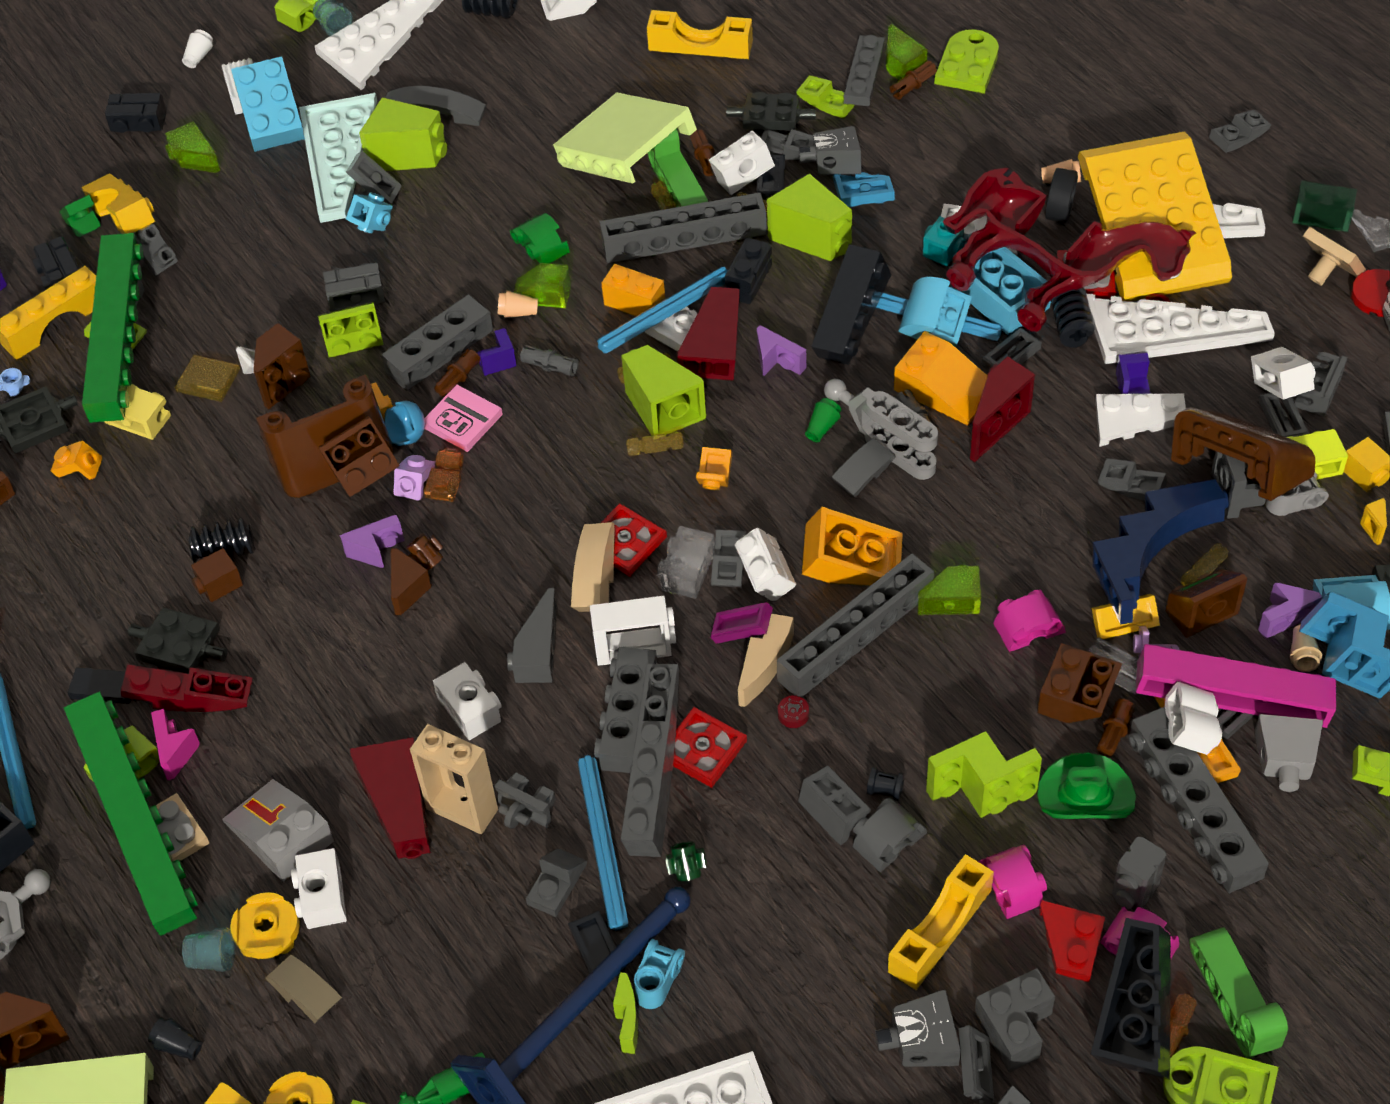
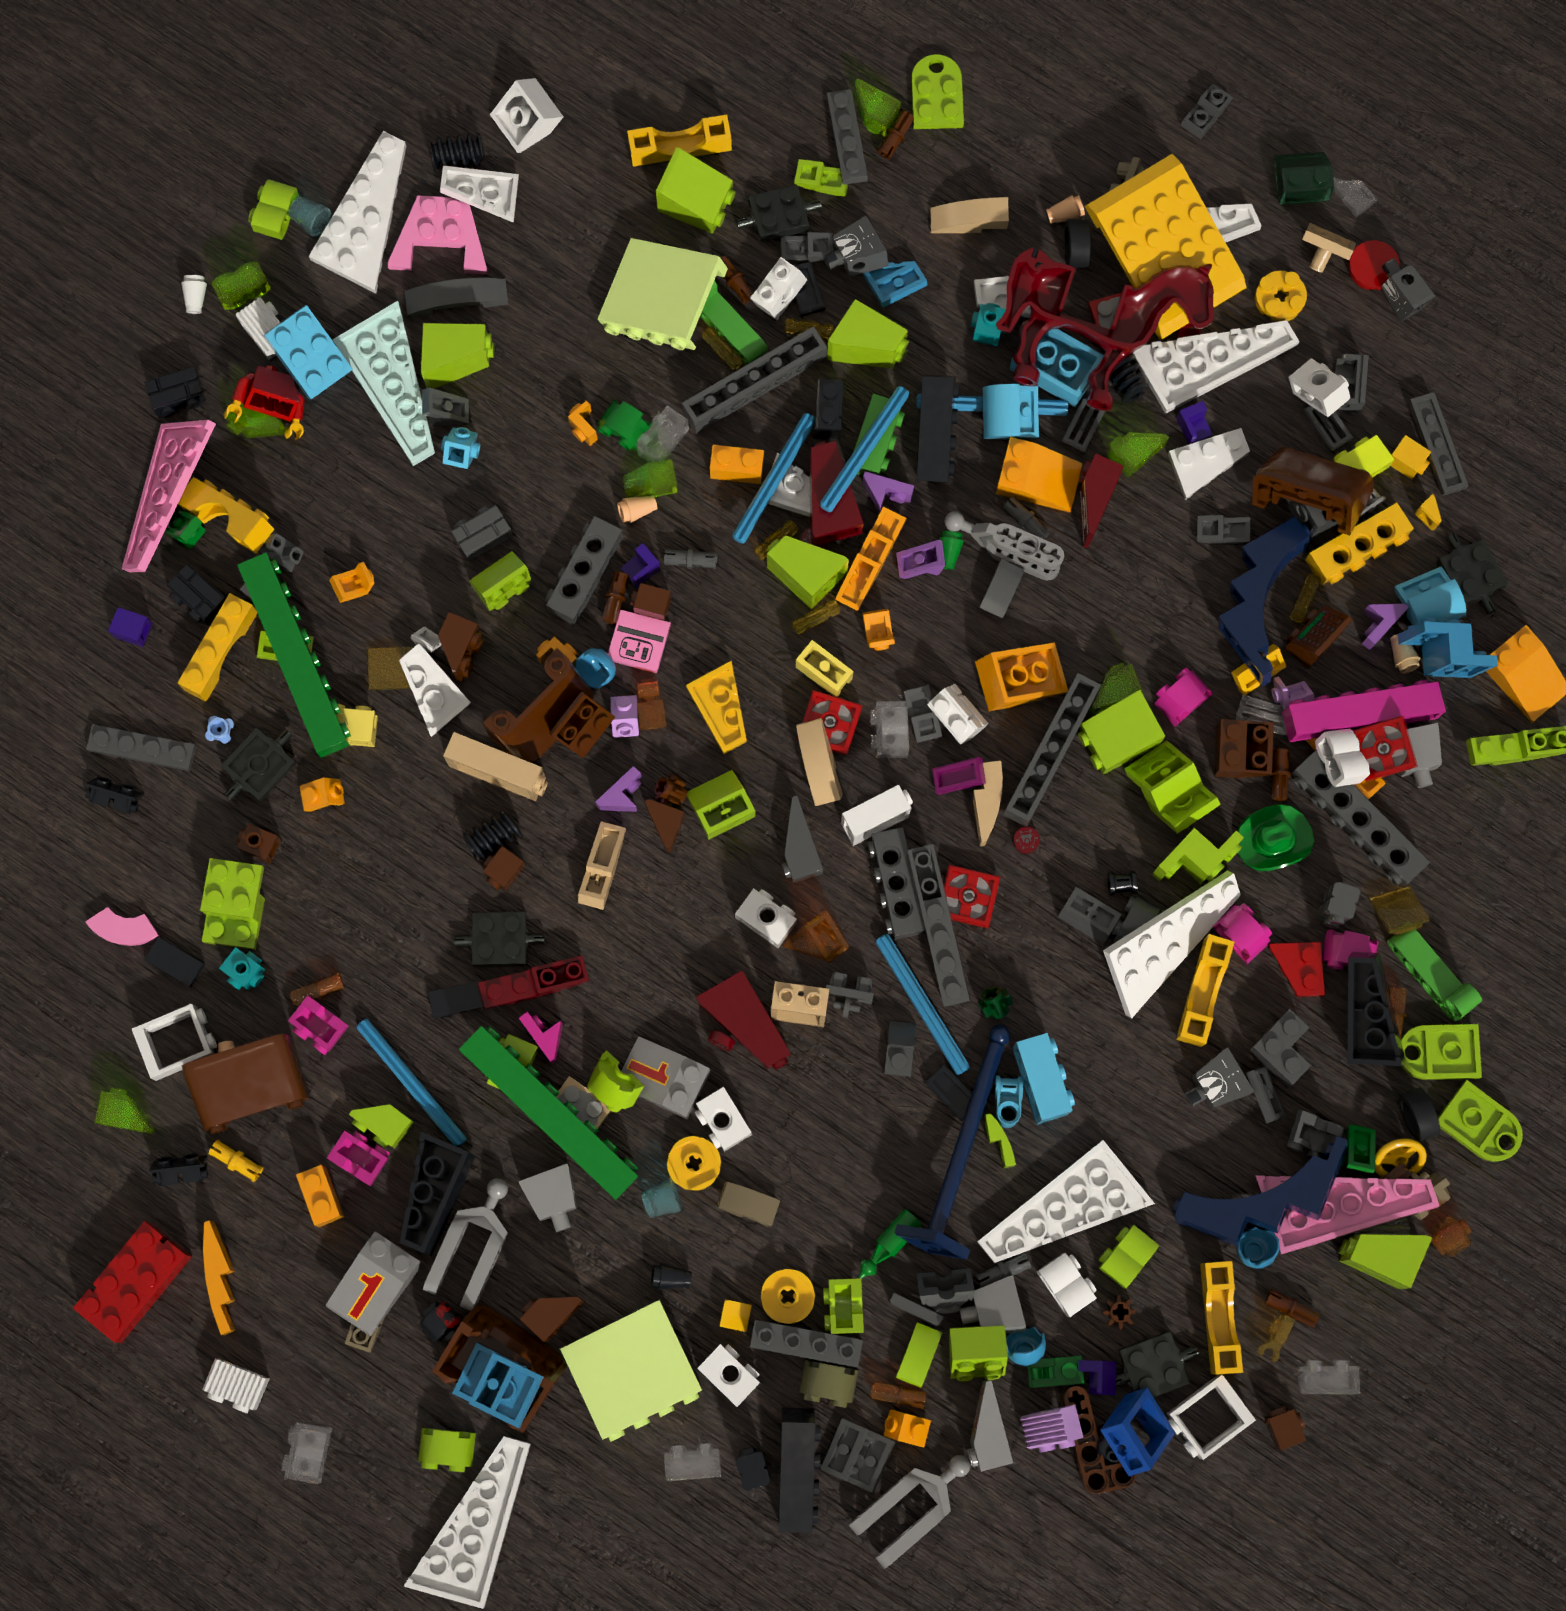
camera: 25 degrees left, 25 degrees up
(82, 173) = (170, 469): none -> bright pink wing
(92, 906) = (551, 1195): none -> light grey torso
(208, 296) = (352, 583): none -> light orange bracket
(215, 127) = (270, 394): none -> red torso
(216, 813) = (613, 1086): none -> lime cylinder
(233, 400) = (433, 689): none -> white wing
(239, 46) = (238, 286): none -> clear neon green brick
(255, 476) = (495, 767): none -> tan piece
(317, 603) = (601, 865): none -> tan slope
(358, 807) = (721, 1040): none -> dark red tile
(443, 51) = (439, 223): none -> bright pink wing
(471, 583) = (721, 804): none -> lime slope
(490, 381) = (651, 601): none -> reddish brown brick
(497, 220) = (580, 426): none -> light orange bracket
(498, 32) = (482, 189): none -> white wing
(514, 735) = (819, 938): none -> clear orange slope
(516, 493) = (720, 706): none -> yellow wing
(573, 247) = (663, 436): none -> clear brick
(641, 489) = (824, 668): none -> light yellow brick
(693, 72) = (694, 192): none -> lime slope
(706, 954) = (1043, 1078): none -> medium azure brick
(735, 408) = (870, 558): none -> light orange slope
(764, 299) = (864, 449): none -> dark azure axle
(787, 416) = (921, 560): none -> medium lavender slope
(788, 302) = (877, 461): none -> bright green brick
(899, 858) = (1156, 948): none -> white wing
(942, 631) = (1121, 733): none -> lime slope
(962, 154) = (970, 216): none -> tan slope
(980, 698) = (1172, 787): none -> lime bracket
(1062, 383) = (1136, 449): none -> clear neon green slope
(1215, 910) = (1400, 911): none -> clear yellow piece
(1249, 725) = (1386, 748): none -> red piece
(1278, 284) = (1287, 283): none -> yellow plate
(1284, 529) = (1390, 520): none -> yellow brick

